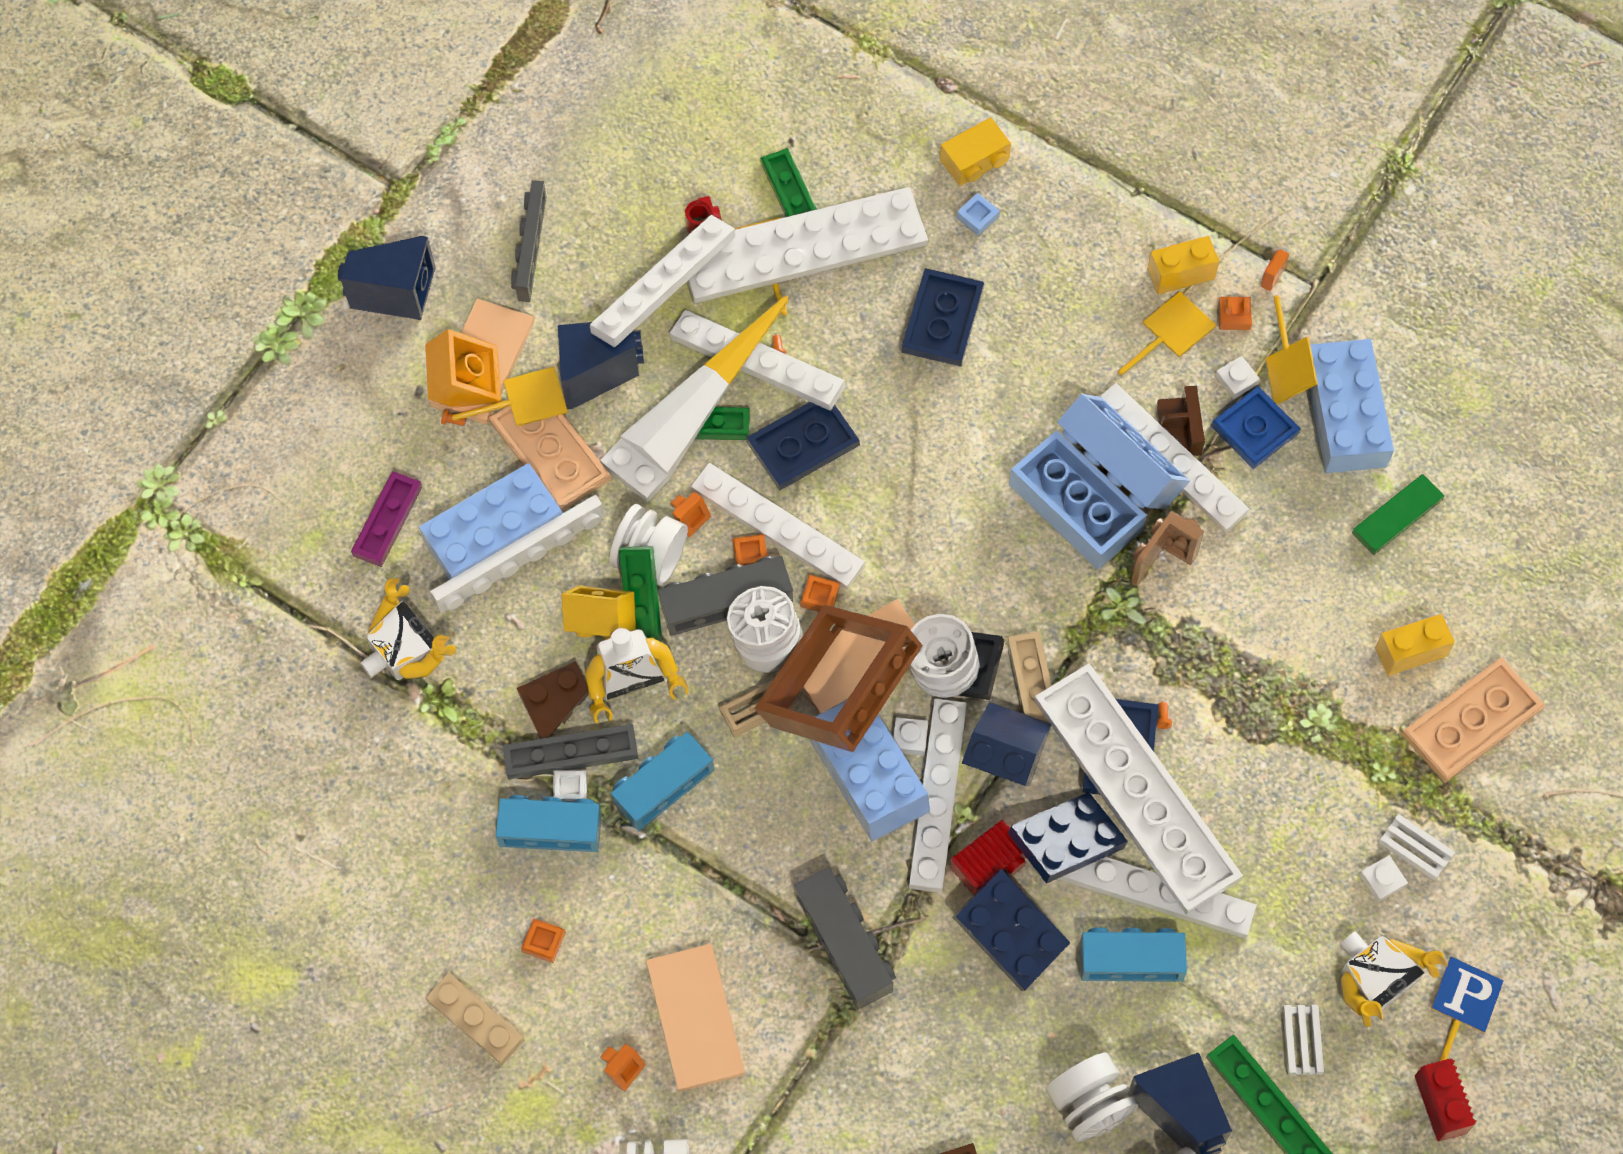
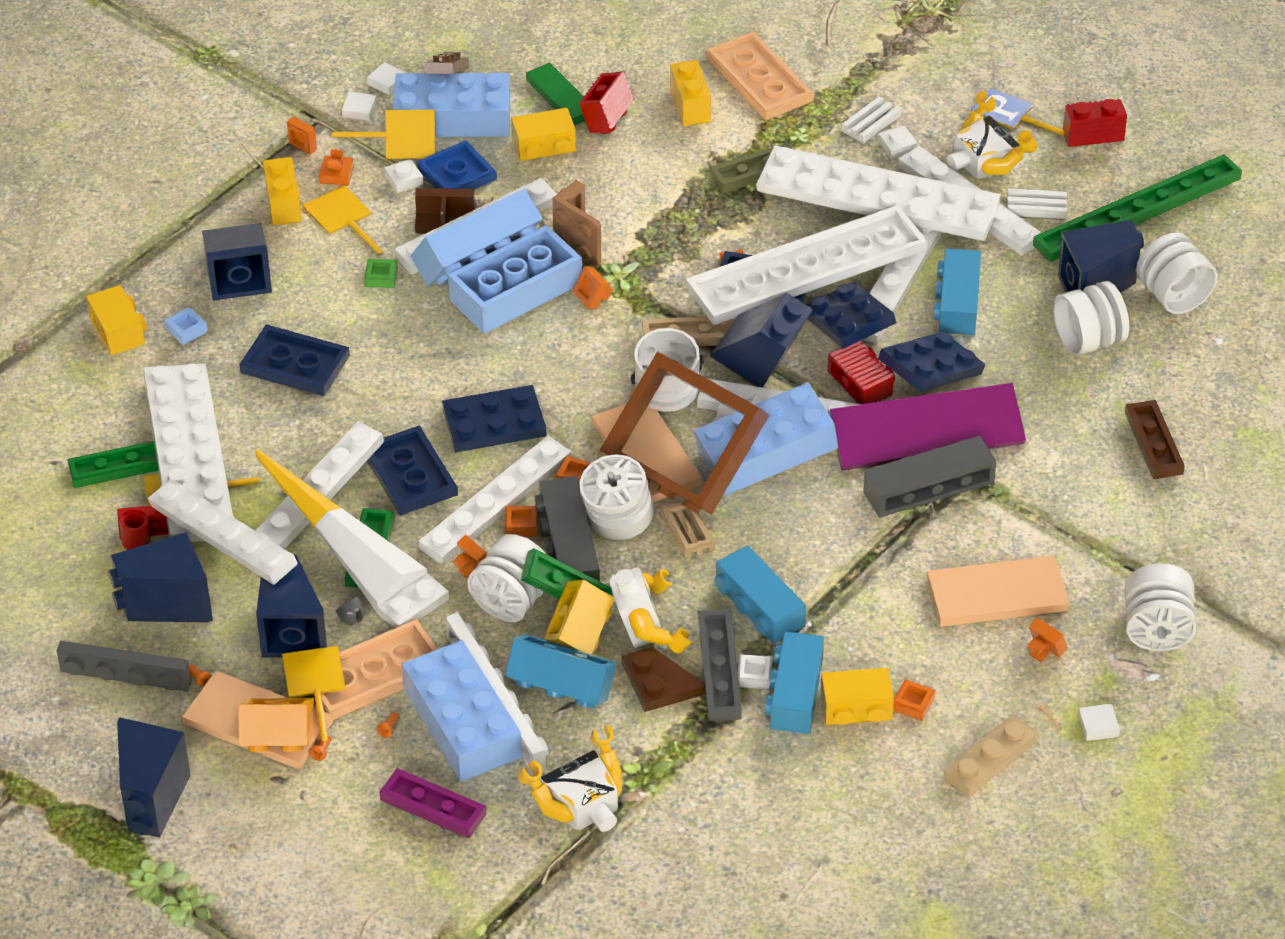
camera: 85 degrees left, 20 degrees down
(482, 470) = (385, 728): none -> orange piece
(523, 1124) = (1098, 722): none -> white tile
(528, 308) = (201, 677): none -> orange piece
(533, 883) = (857, 696): none -> yellow brick
(540, 605) = (560, 670): none -> dark azure brick
(616, 416) = (351, 612): none -> dark grey hinge
(621, 247) = (161, 582): none -> dark blue slope
(889, 510) = (494, 418): none -> dark blue plate
(915, 932) = (913, 425): none -> magenta tile
(1073, 238) = (237, 261): none -> dark blue slope
(1082, 577) = (592, 288): none -> orange tile
(1086, 377) = (381, 273): none -> bright green tile
(1273, 859) = (873, 189): none -> white plate
(1297, 964) = (1005, 226): none -> white plate
(1306, 726) = (741, 171): none -> olive plate
(1319, 503) = (543, 134): none -> yellow brick
(1340, 319) = (359, 106): none -> white tile
(1375, 557) = (606, 102): none -> red brick
(1390, 339) = (384, 78): none -> white tile
(1398, 387) = (447, 63): none -> plate

